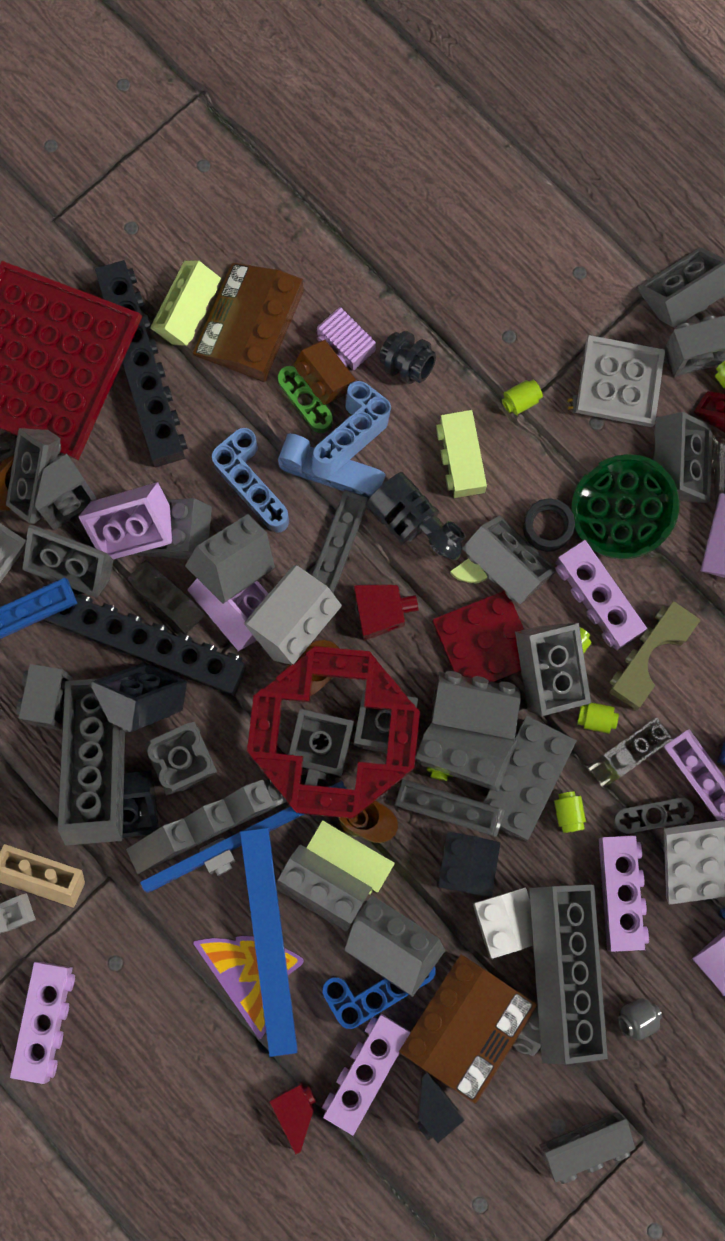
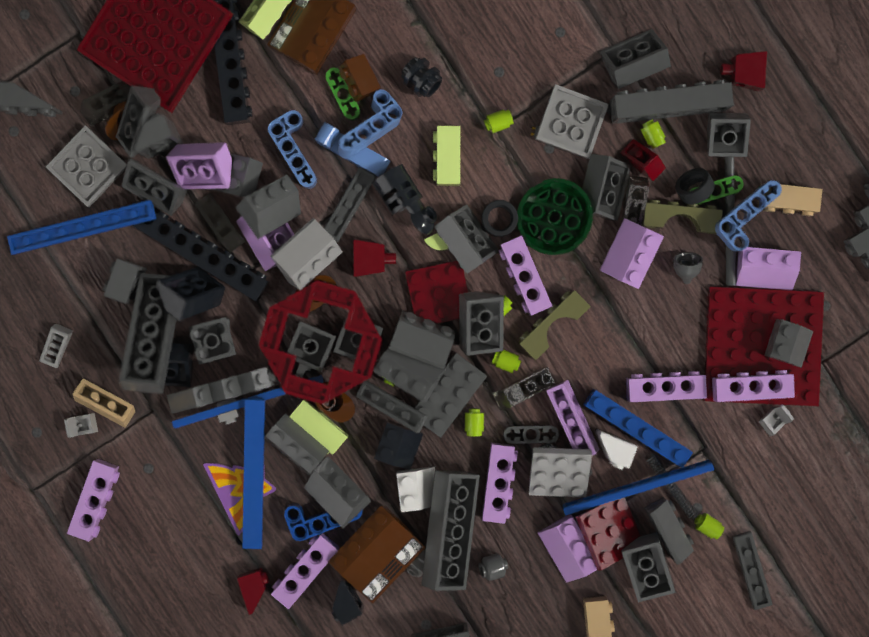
camera: 10 degrees right, 10 degrees up
(346, 338) = (380, 54): lavender brick -> none

